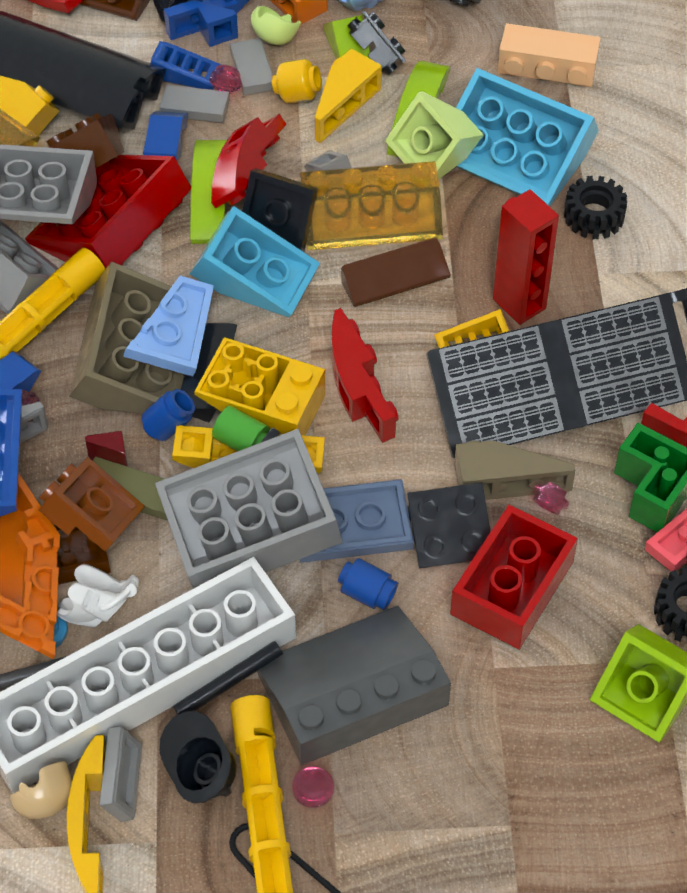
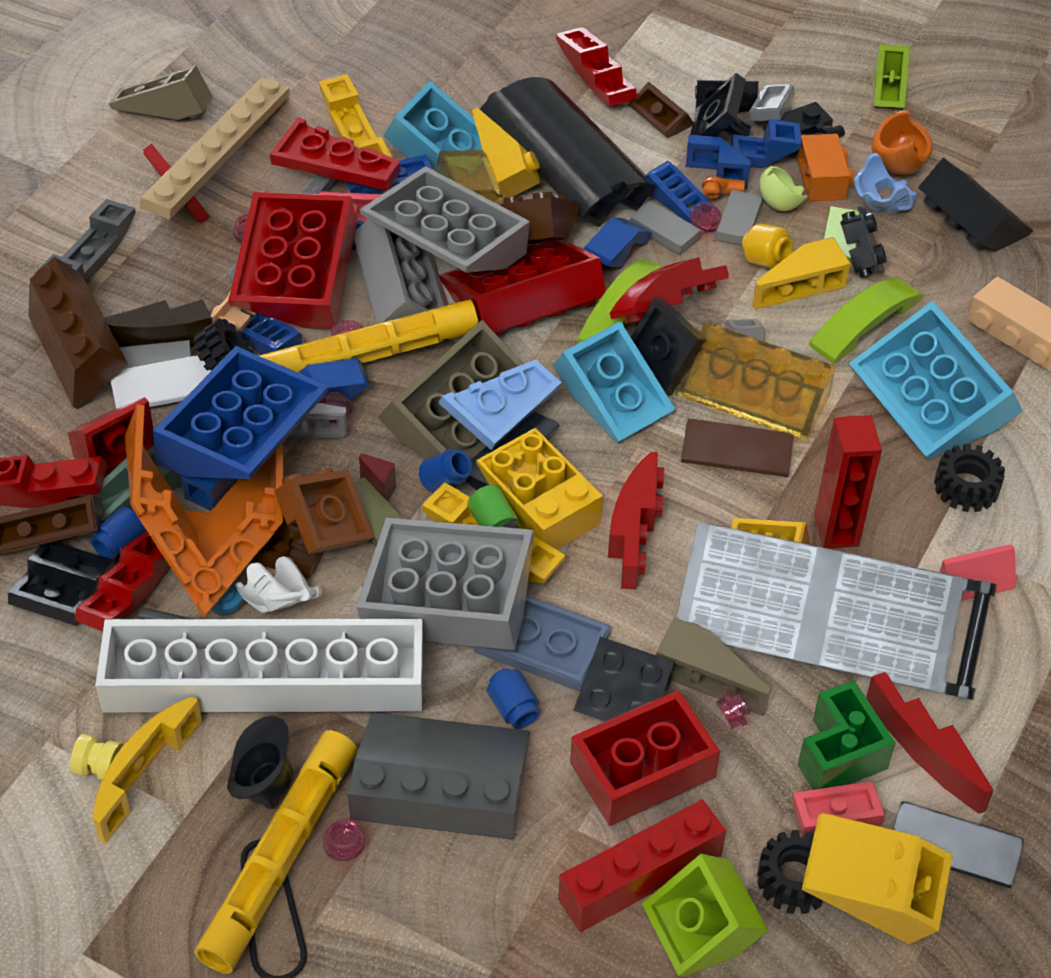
camera: 30 degrees right, 5 degrees down
(45, 838) = (92, 756): none -> light yellow wheel
(47, 796) = (120, 720): tan hair -> none
(120, 774) = (193, 741): light grey tile -> none
(215, 45) = (715, 185): none -> orange arm
(229, 679) = (339, 713): black bar -> none
(433, 132) = (855, 344): yellowish green slope -> none
(572, 668) = (639, 865): none -> red brick
(660, 278) = (989, 565): none -> coral slope

